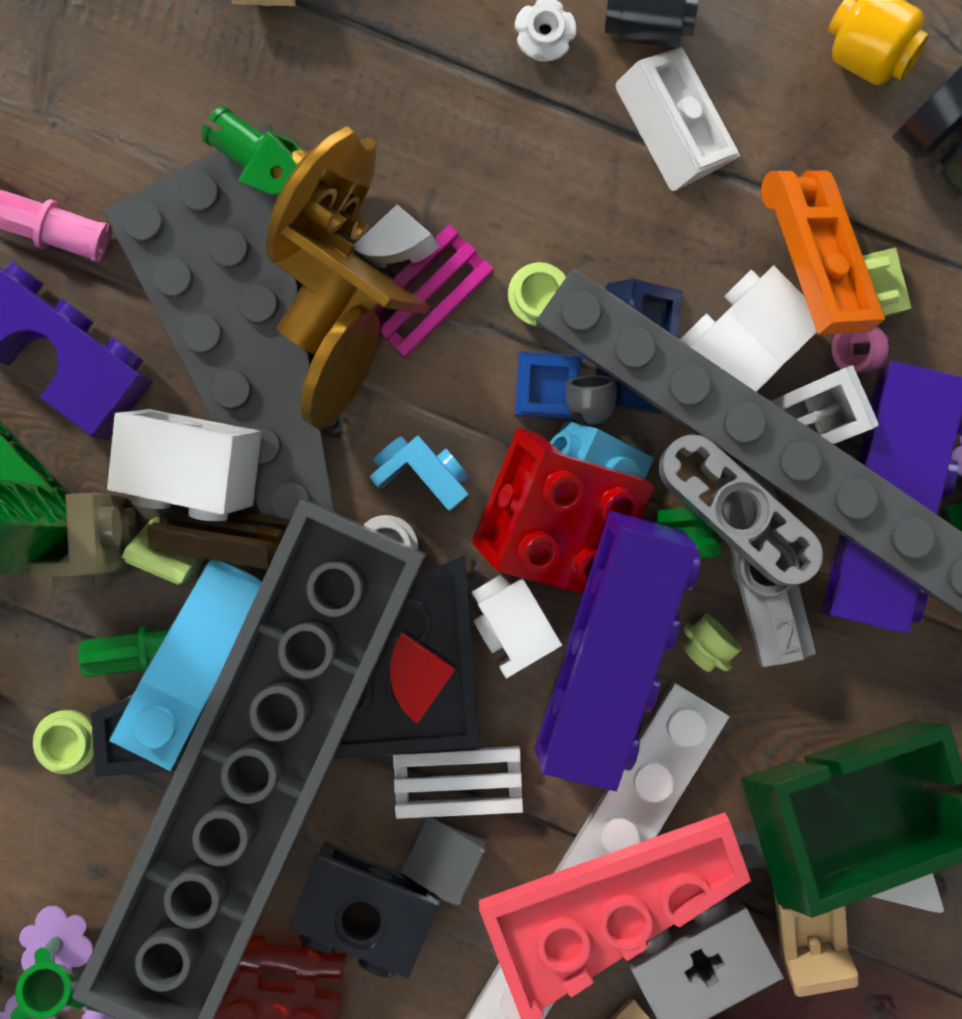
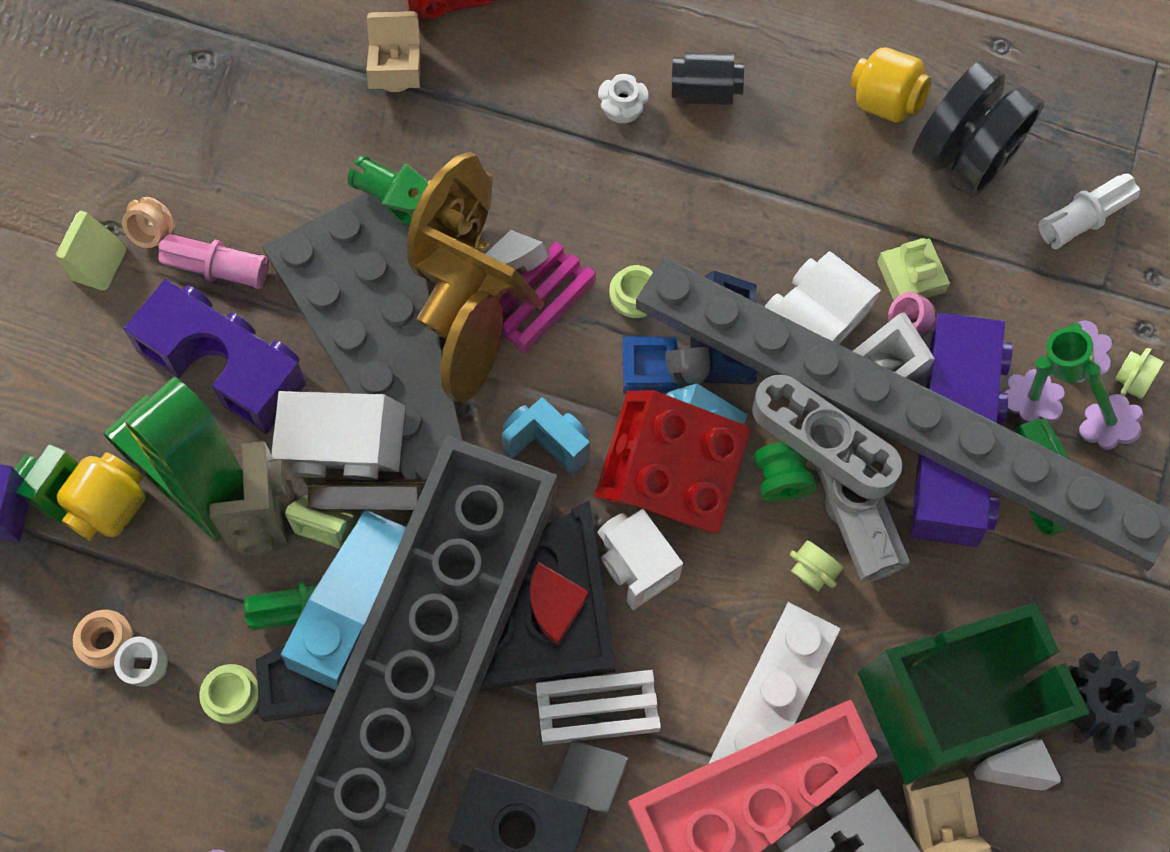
camera: 10 degrees left, 20 degrees down
(616, 650) = (731, 564): dark purple brick -> none
(676, 118) = (736, 156): white slope -> none
(823, 251) = (870, 238): orange plate -> none

